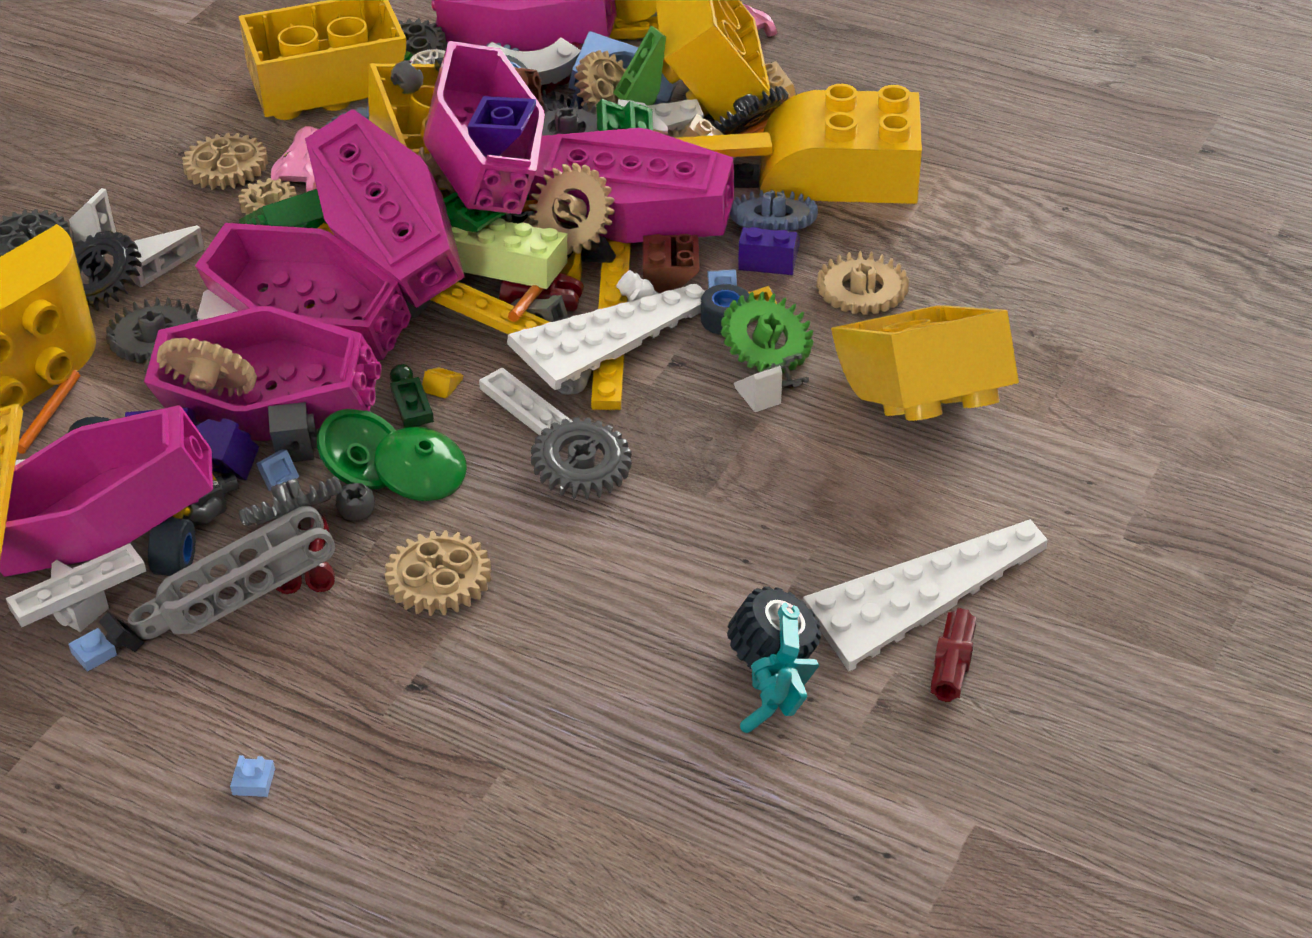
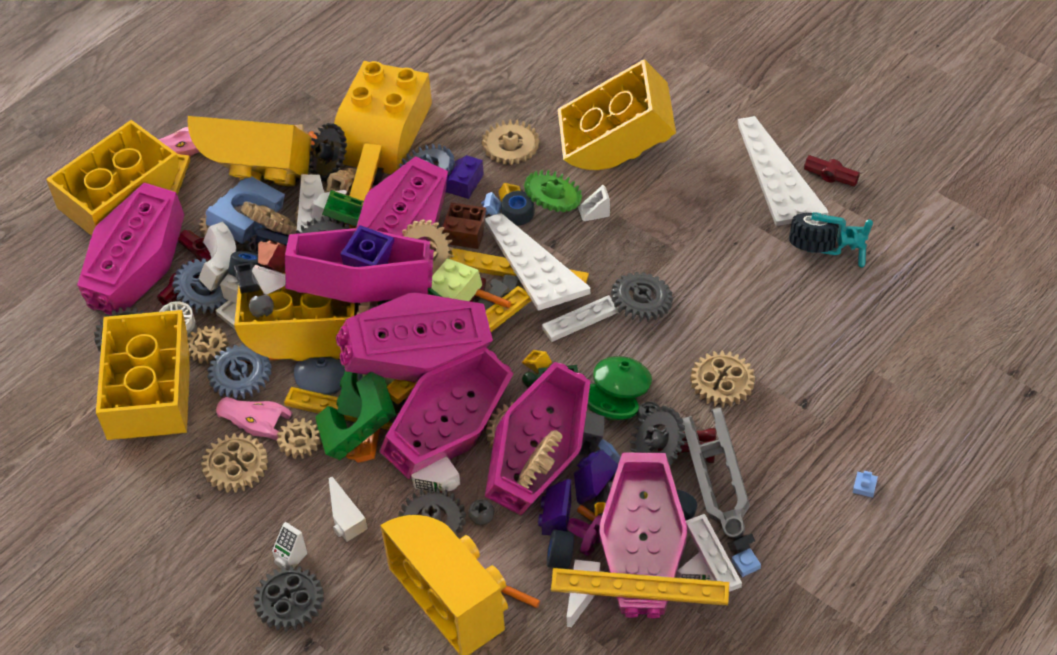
camera: 75 degrees left, 10 degrees up
(104, 278) = (341, 537): black gear -> none
(634, 286) = (489, 245): white animal -> none
(644, 73) = (282, 185): bright green slope -> none
(786, 362) = (586, 190): dark grey piece -> none

